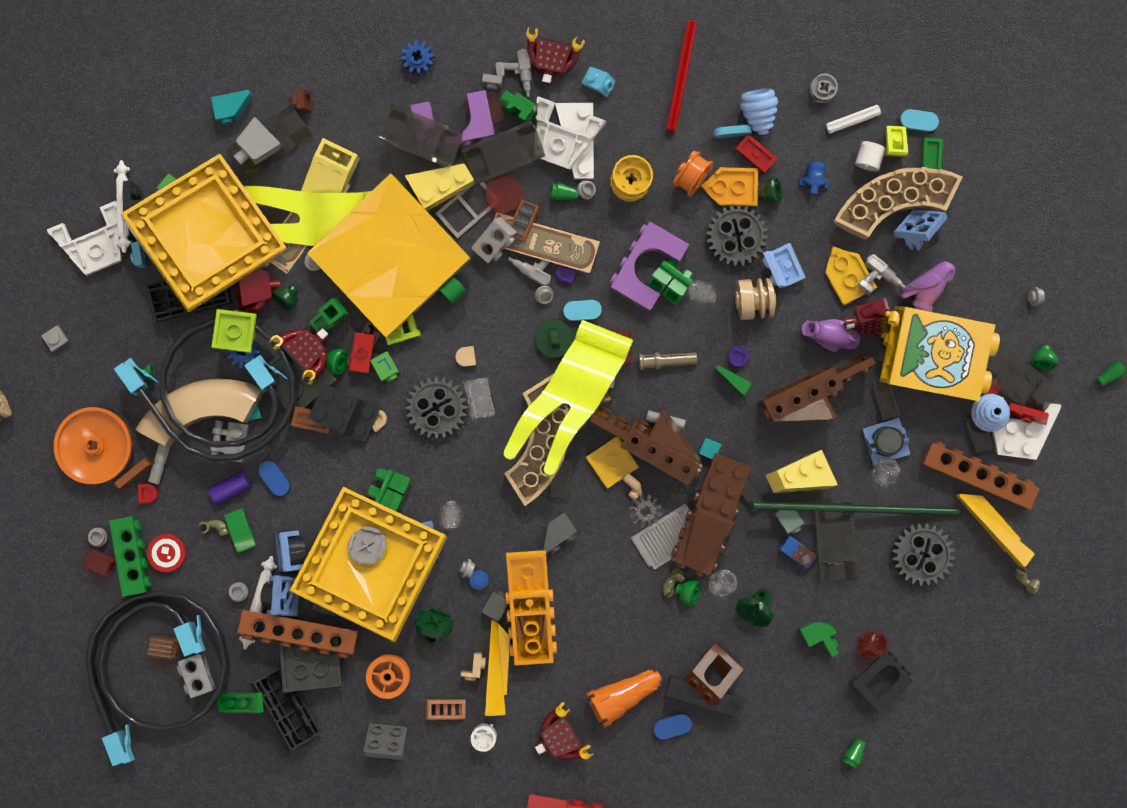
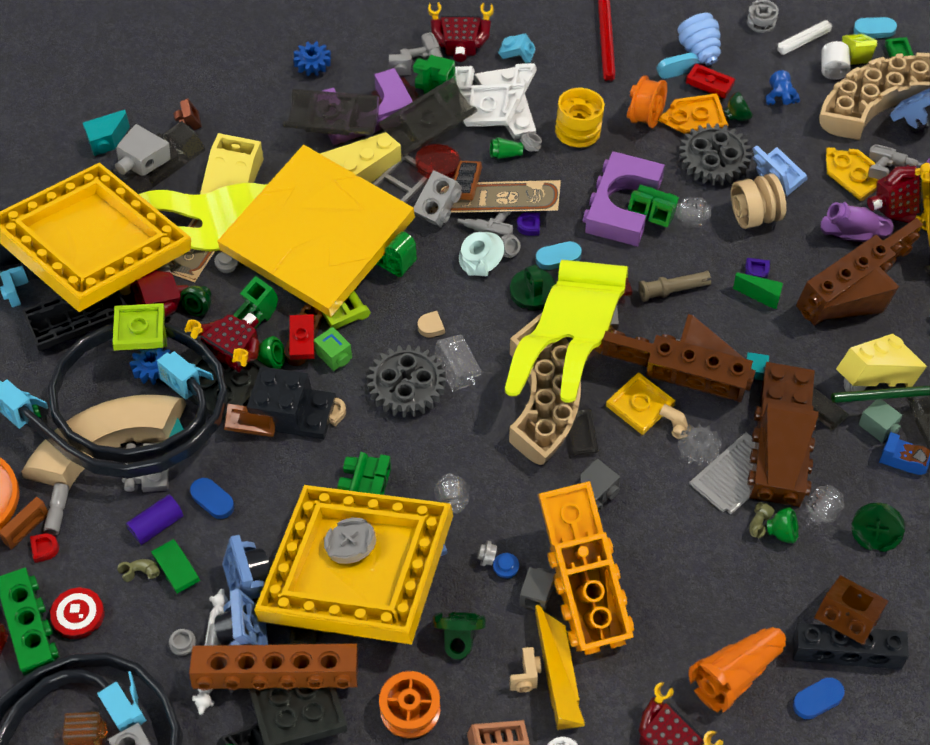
camera: 15 degrees left, 30 degrees down
(520, 298) = (481, 253): none -> light aqua piece

